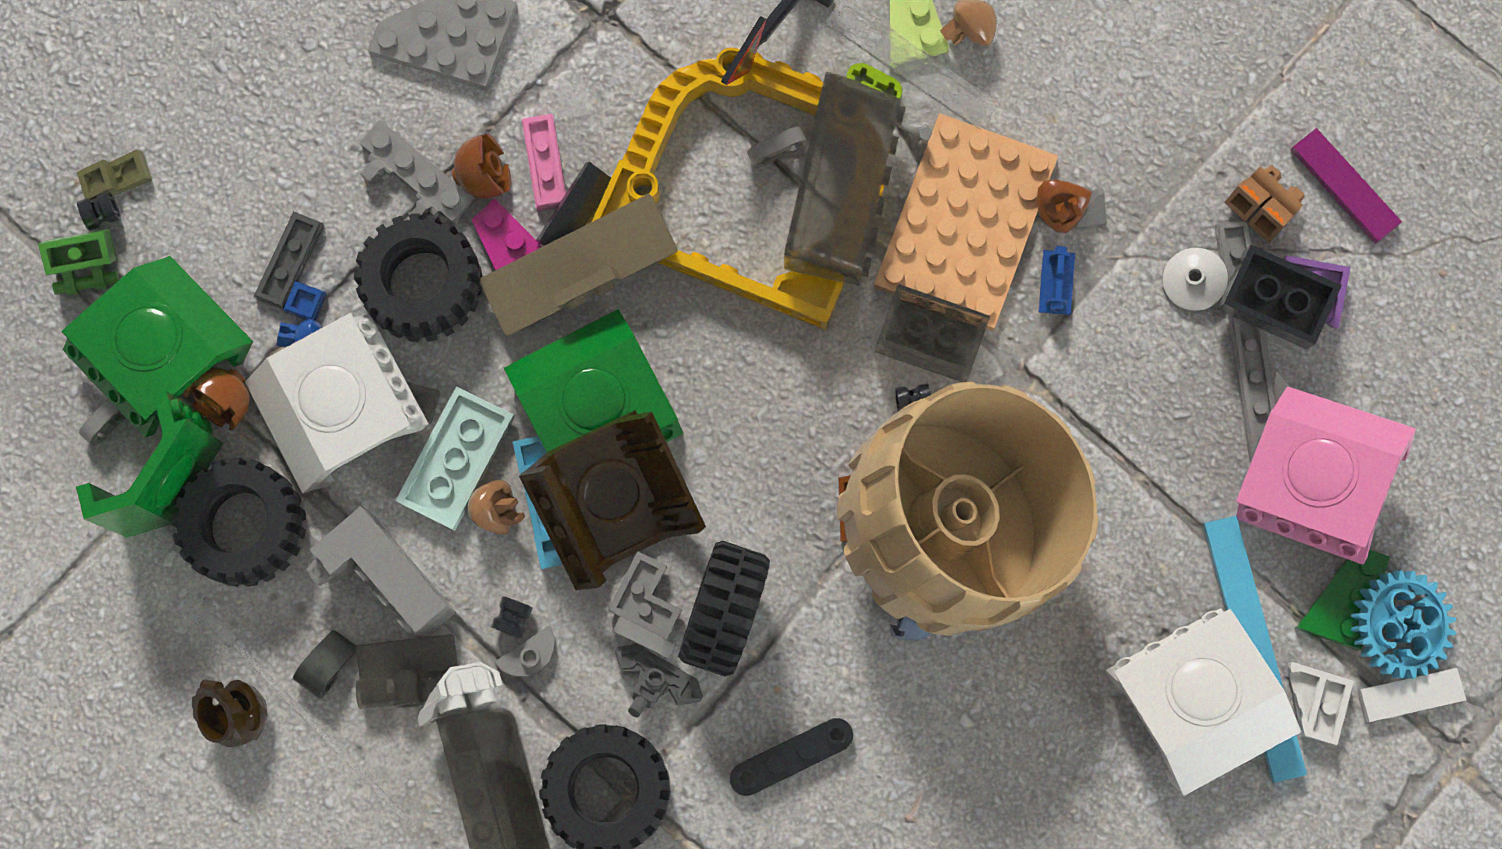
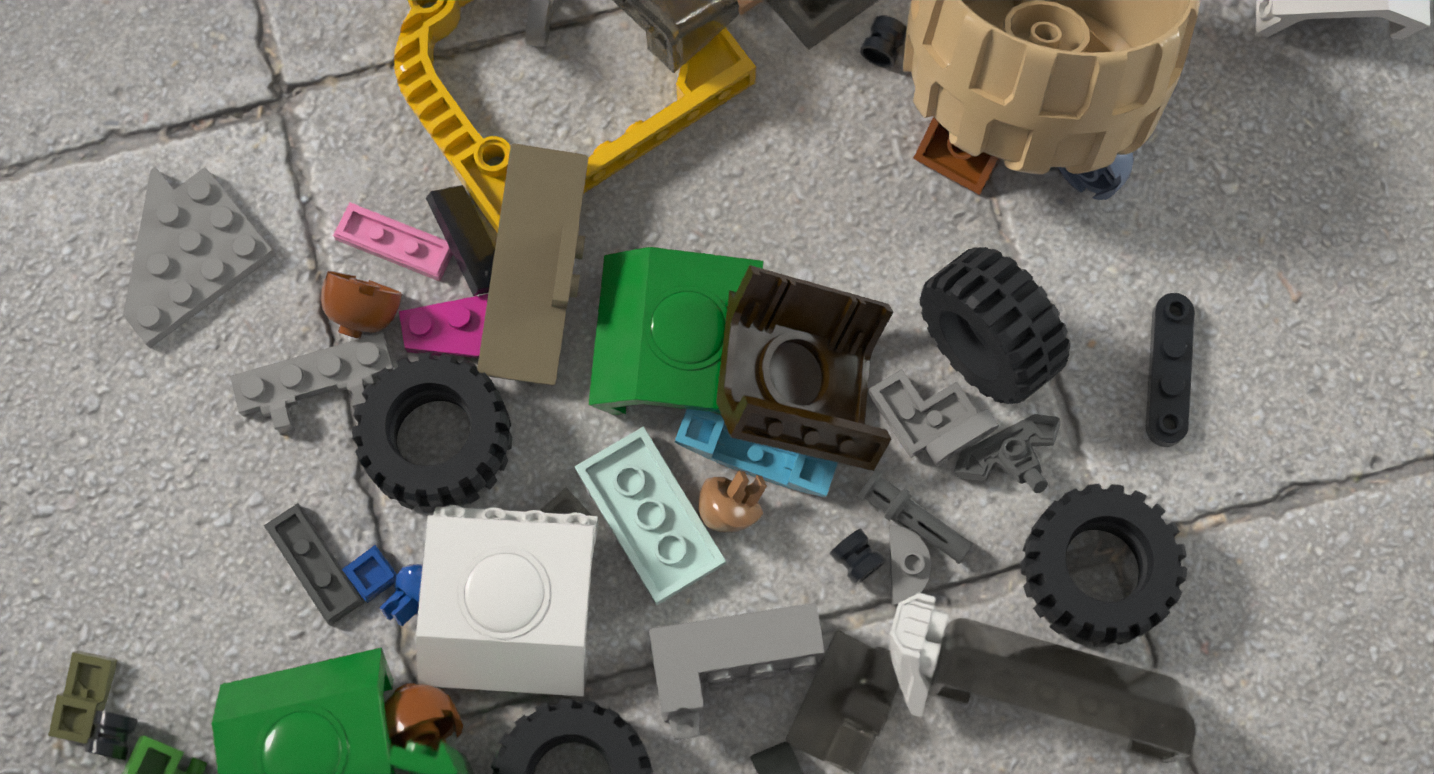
camera: 60 degrees left, 5 degrees down
(566, 623) = (896, 503): none -> dark grey pin

